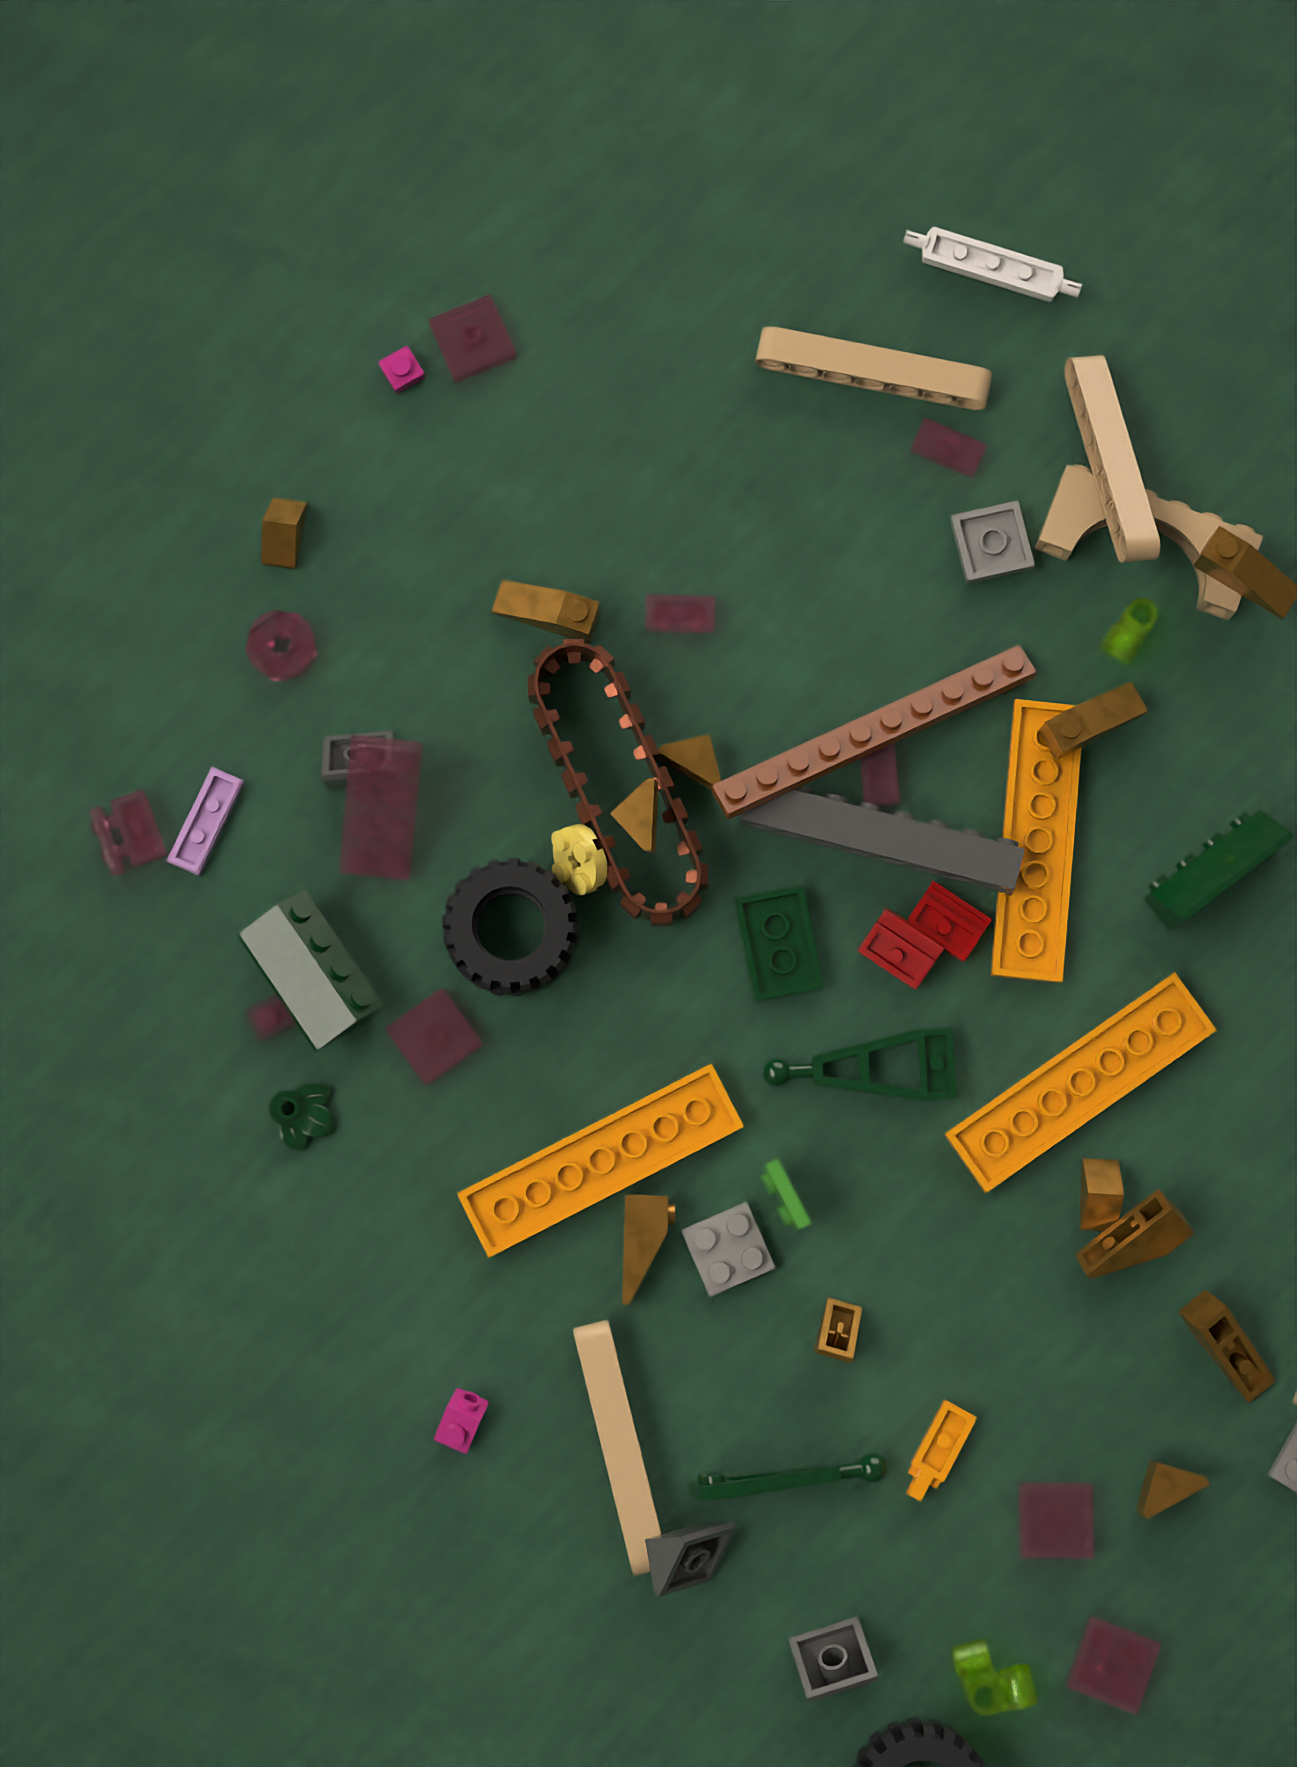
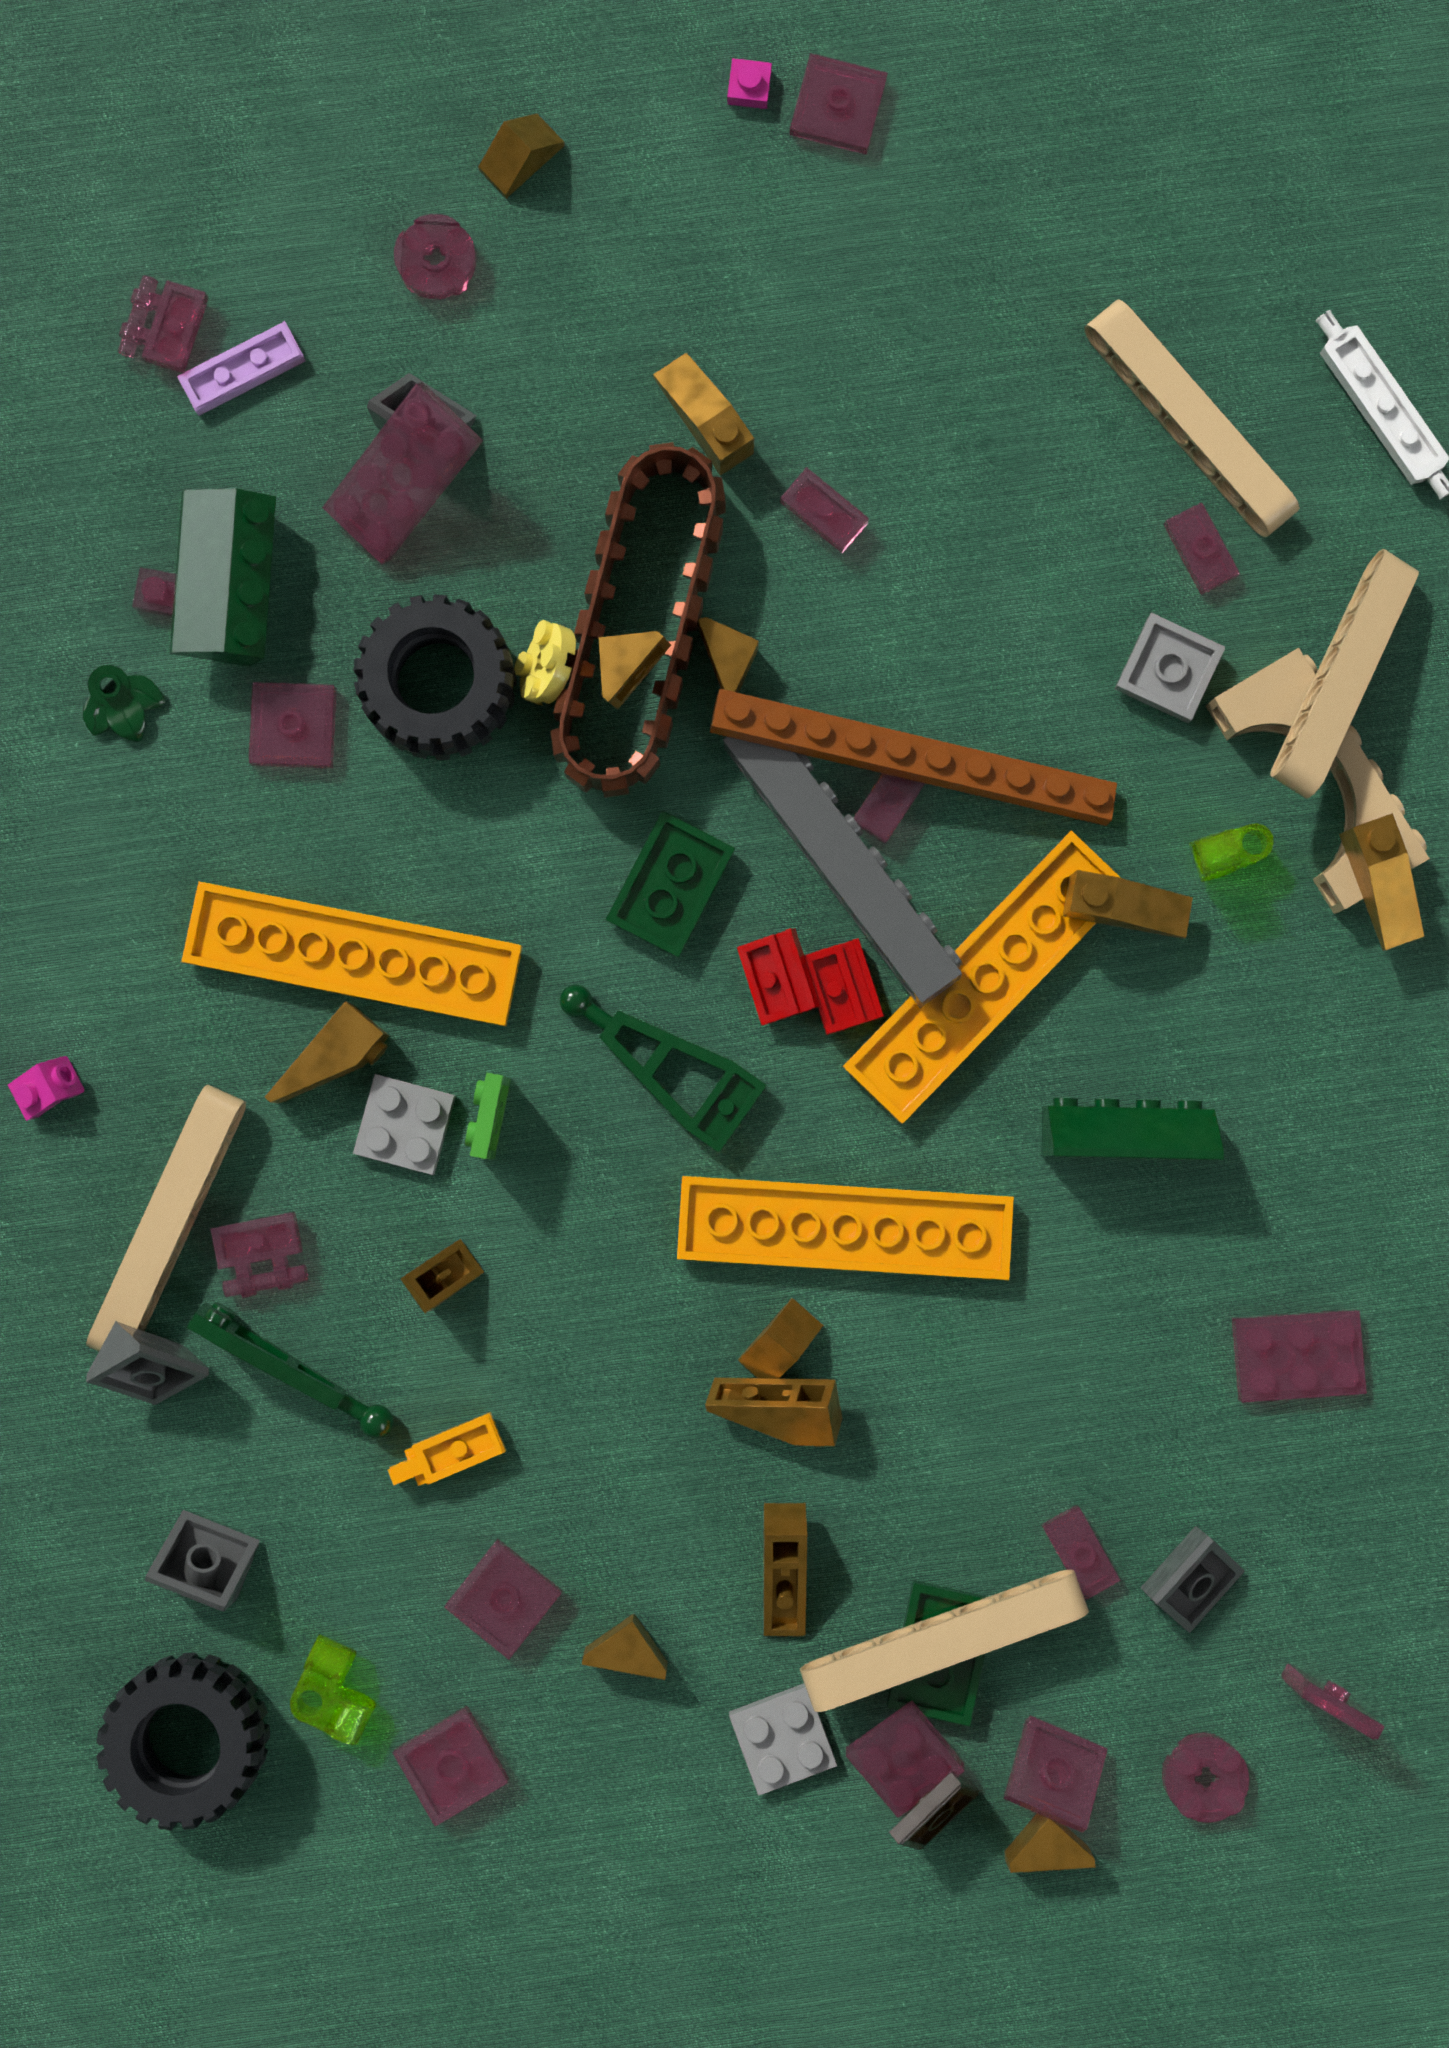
camera: 40 degrees right, 5 degrees up
(692, 1410) = (259, 1241): none -> clear pink plate

